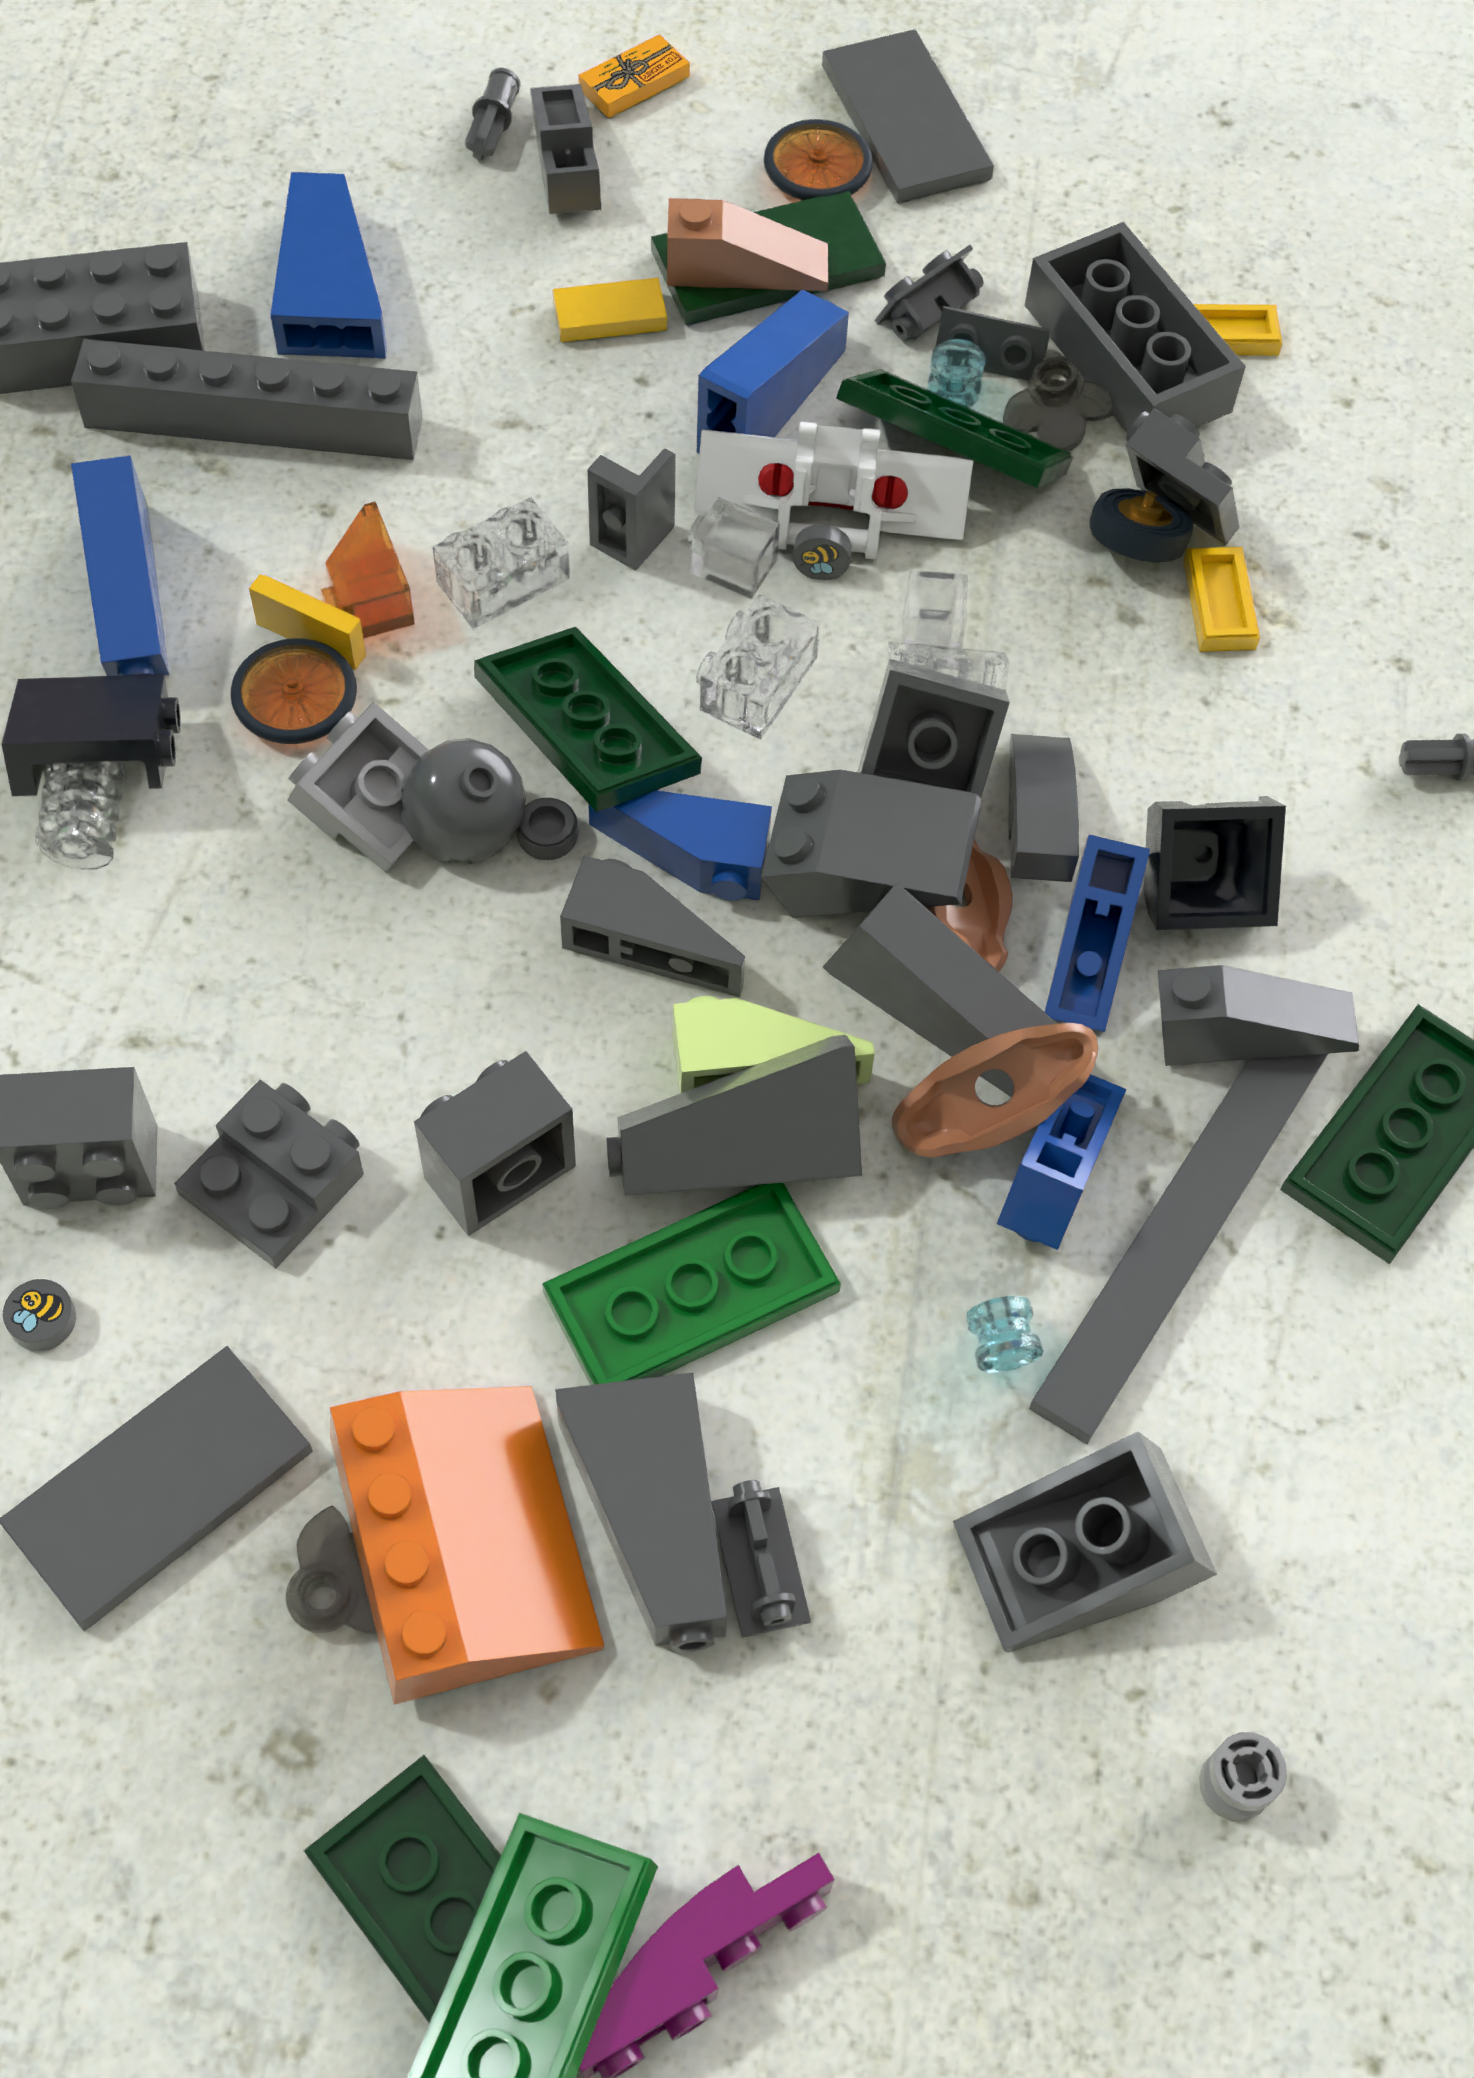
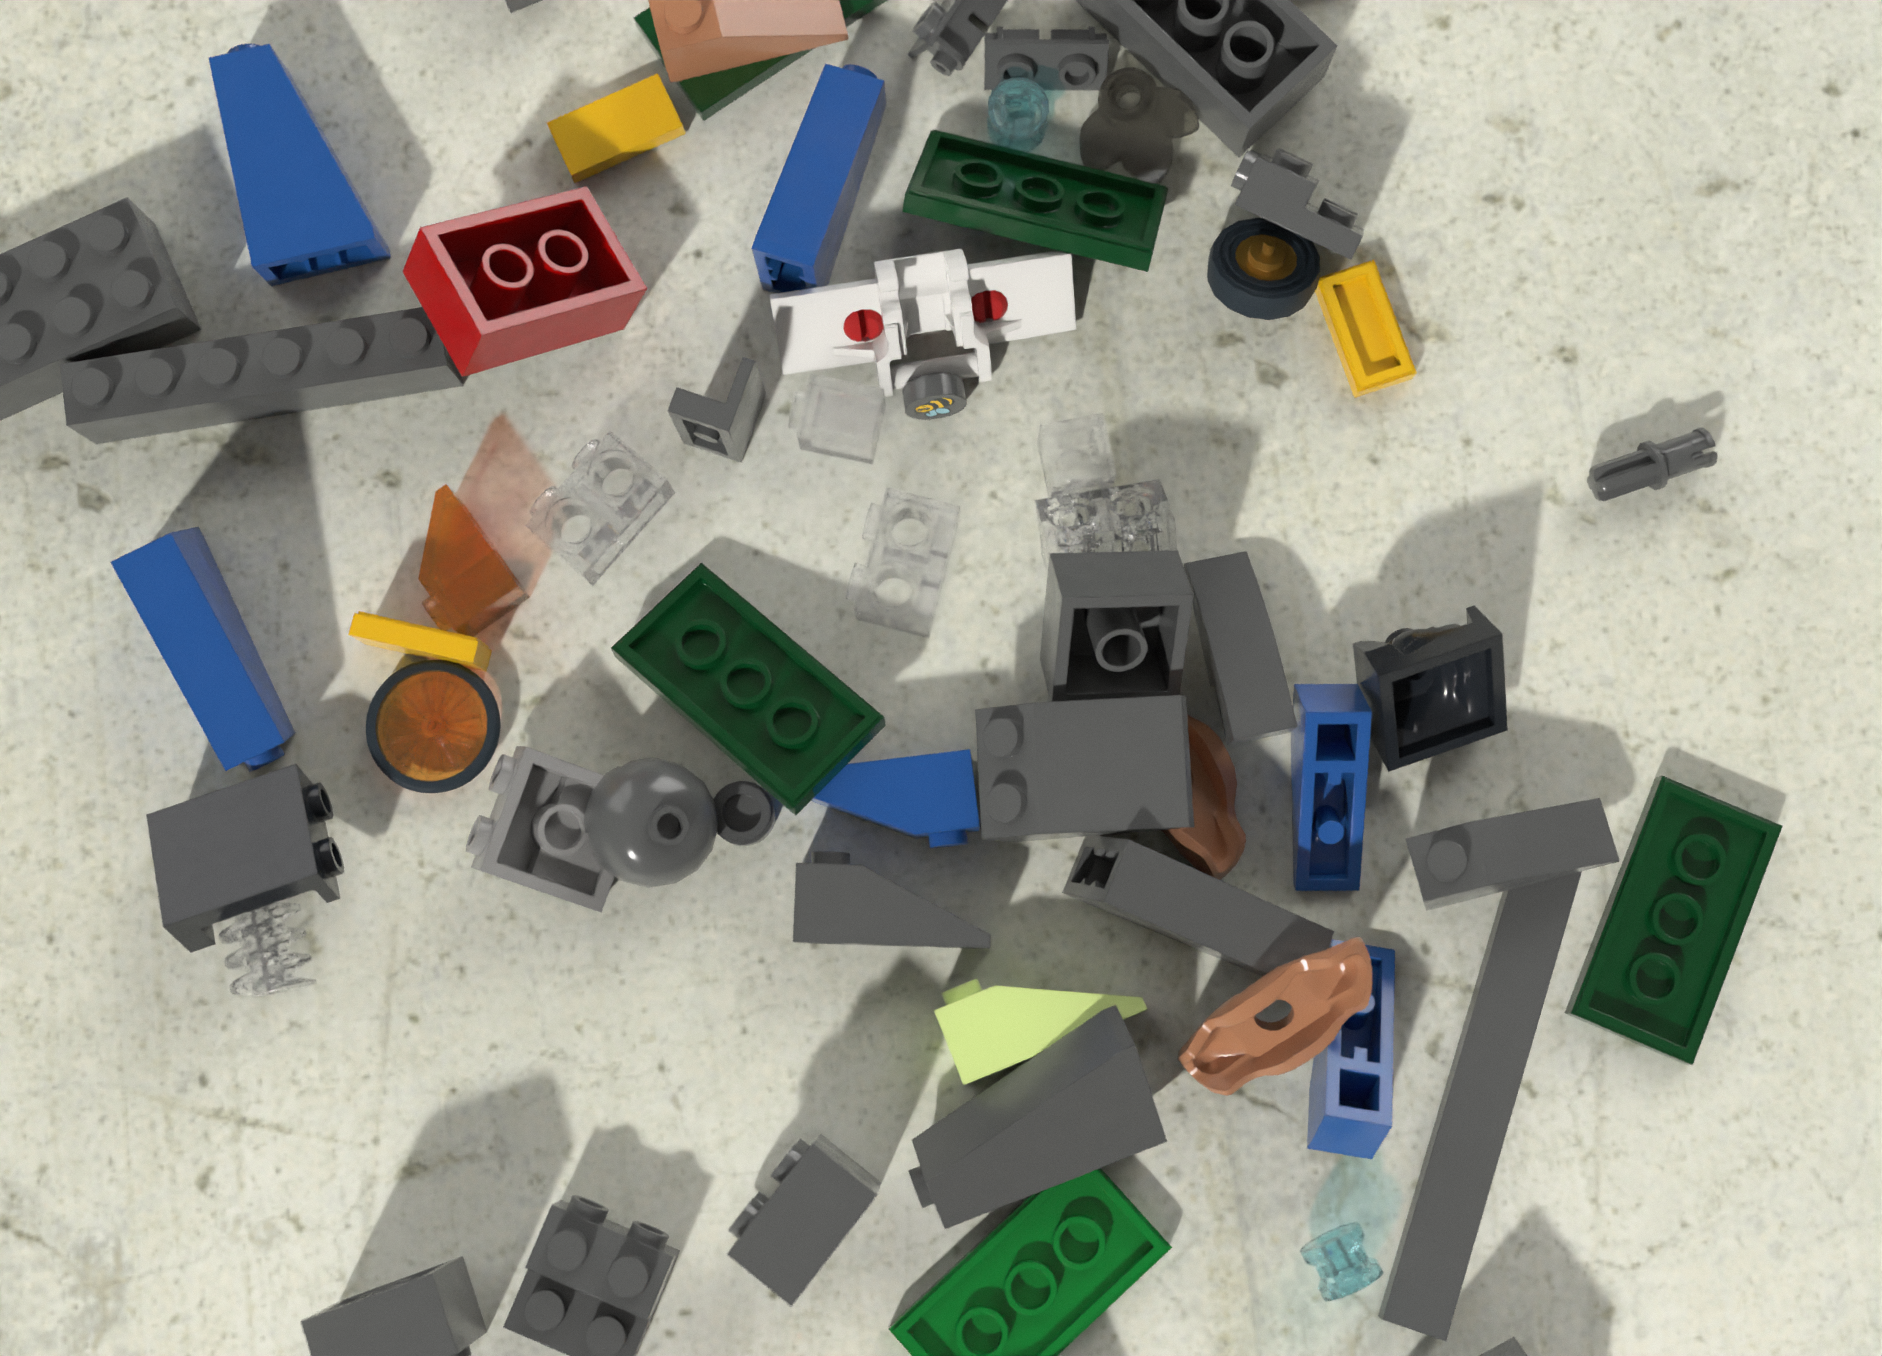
camera: 10 degrees left, 20 degrees up
(496, 368) = (523, 279): none -> red brick

